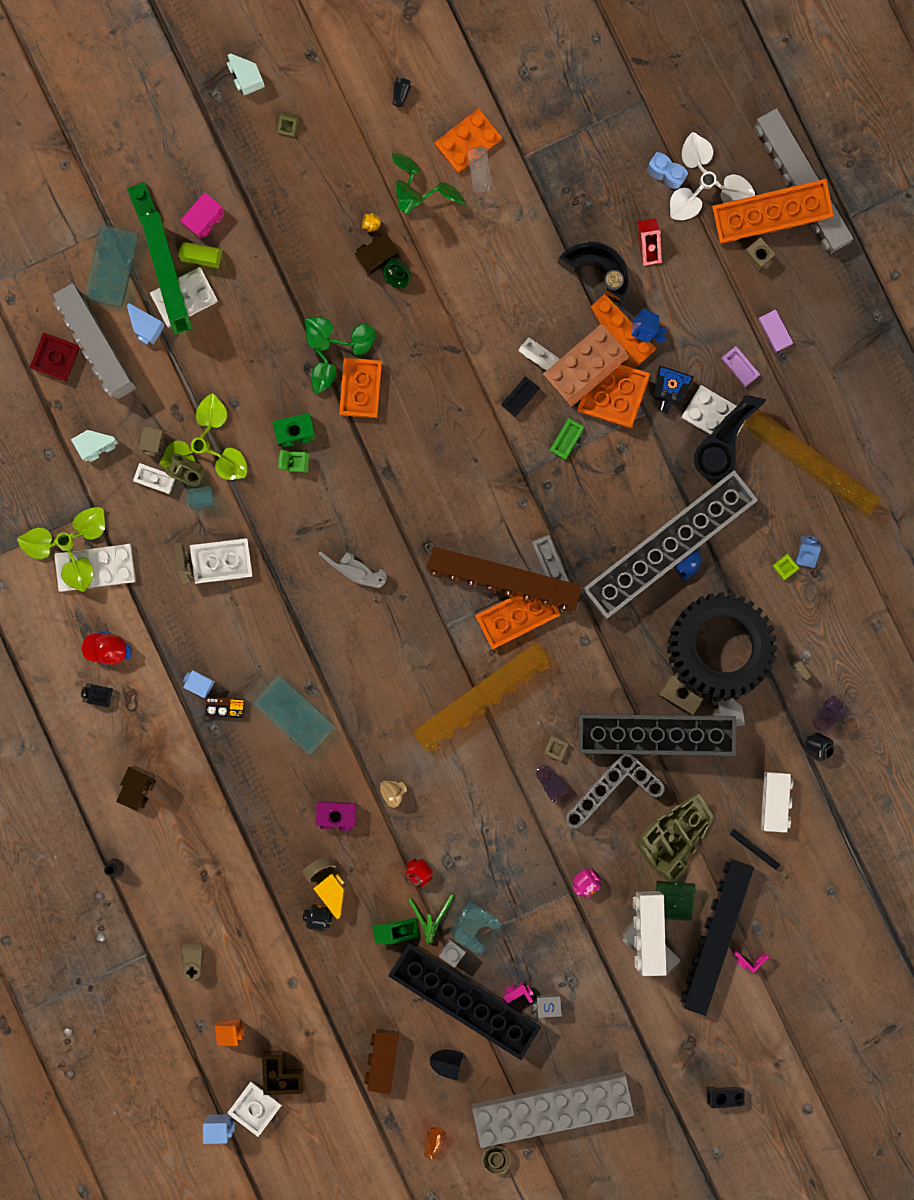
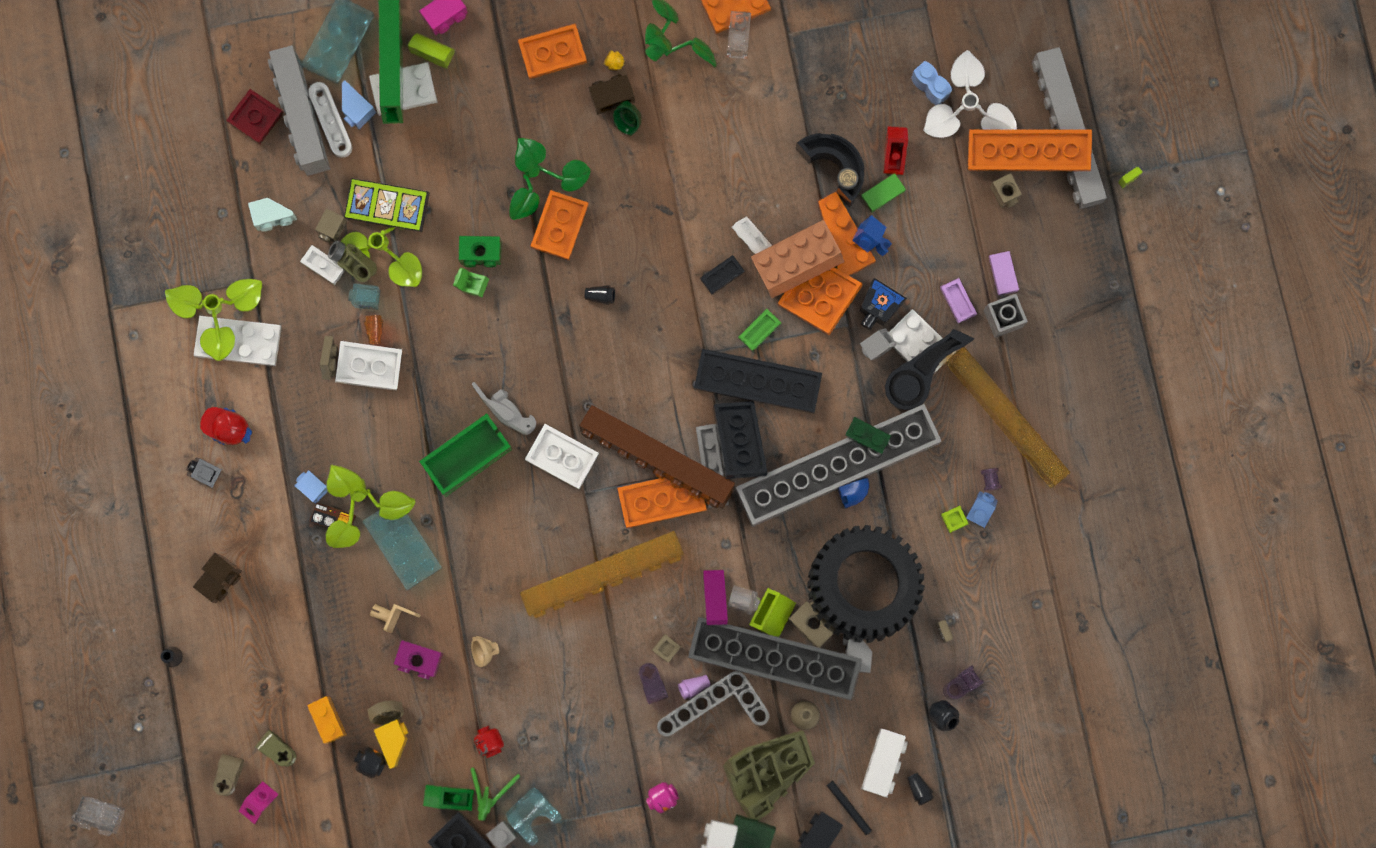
camera: 10 degrees right, 5 degrees down
(87, 1025) = (99, 815): none -> clear brick
(124, 342) = (330, 119): none -> white plate
(163, 463) = (336, 251): none -> dark grey tile
(198, 409) = (386, 205): none -> tile
(216, 525) = (374, 326): none -> clear orange cone
(226, 926) = (273, 747): none -> olive piece
(226, 977) = (258, 801): none -> dark pink bracket
(229, 674) = (341, 483): none -> lime plant
(268, 889) = (327, 720): none -> light orange brick
(300, 782) = (390, 616): none -> tan bracket
(311, 227) = (552, 51): none -> orange plate
(330, 620) = (465, 455): none -> green piece
(415, 442) = (600, 294): none -> black cone
(417, 599) = (561, 456): none -> white plate
(575, 544) = (740, 440): none -> black plate
(577, 486) = (758, 381): none -> black plate
(588, 777) = (693, 686): none -> lavender cone
(589, 692) = (715, 597): none -> magenta tile
(615, 688) = (743, 600): none -> clear brick
(643, 693) = (772, 613): none -> lime brick
(647, 284) = (883, 193): none -> bright green tile
(677, 425) = (877, 344): none -> light grey brick
(690, 512) = (867, 435): none -> dark green plate
(695, 776) = (805, 715): none -> dark tan brick
(787, 370) = (1005, 315): none -> light grey head
(810, 523) = (991, 479): none -> clear purple bush
(814, 817) = (920, 790): none -> black cone
(869, 213) = (1130, 177): none -> lime tile

